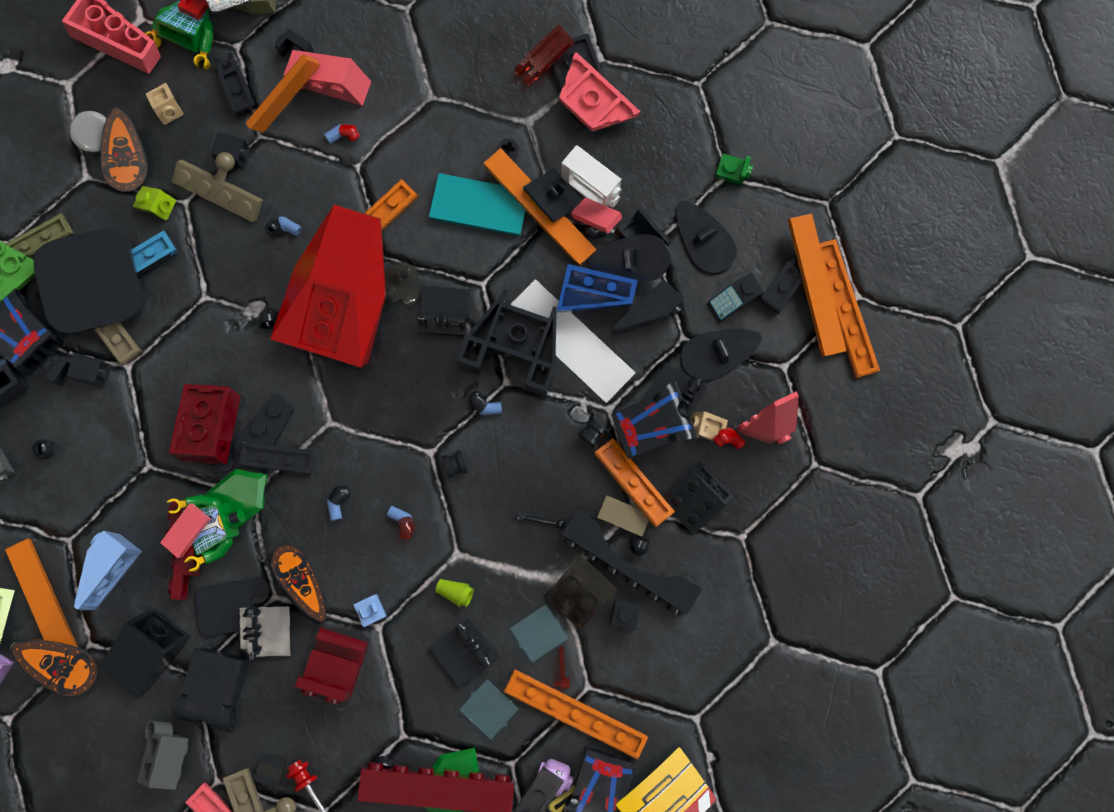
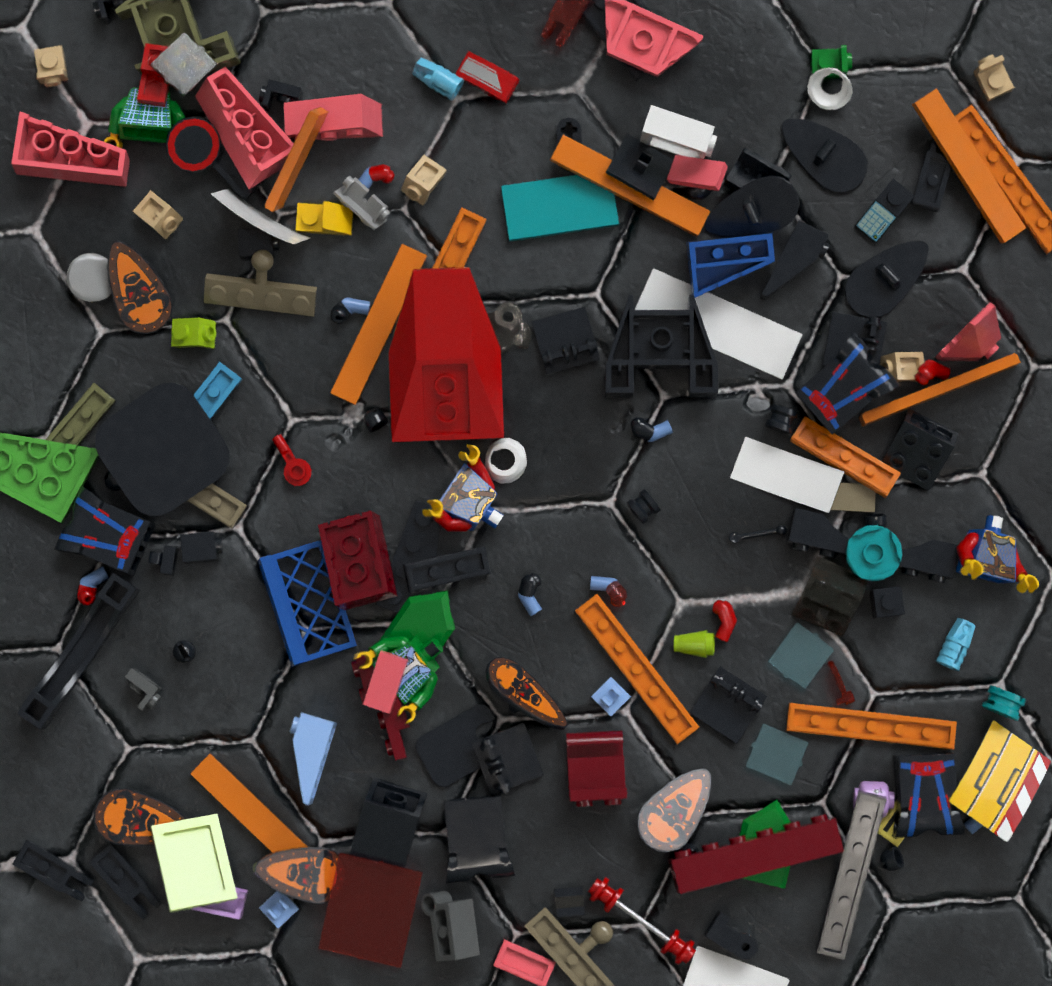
camera: 20 degrees left, 5 degrees up
(29, 689) = (279, 908): none -> light blue tile
(101, 717) = (370, 910): none -> clear red piece
(133, 450) = (283, 610): none -> blue fence
(190, 337) = (297, 470): none -> red plate
(208, 56) = (193, 144): none -> piece
(232, 125) = (256, 218): none -> white sticker
(253, 57) = (244, 127): none -> coral wedge
(284, 261) = (377, 326): none -> orange tile
(292, 151) = (324, 218): none -> yellow slope
(313, 406) = (467, 497): none -> torso
(328, 156) = (371, 211): none -> light grey hinge
(368, 395) = (516, 470): none -> white piece
(379, 146) = (422, 179): none -> tan bracket
(383, 727) = (674, 811): none -> shield
(400, 596) = (637, 669): none -> orange tile
(422, 75) = (438, 78): none -> medium azure hinge
(460, 87) = (487, 77): none -> slope
(490, 580) = (727, 617): none -> red arm
(581, 480) = (787, 475): none -> white sticker
(627, 569) = (873, 553): none -> teal tile
(671, 671) = (956, 644): none -> medium azure hinge
(693, 735) = (1003, 703): none -> teal wheel
(715, 189) = (826, 100): none -> white piece
(726, 608) = (993, 557): none -> torso
(729, 455) = (939, 389): none -> orange tile
(860, 223) = (993, 77): none -> tan bracket

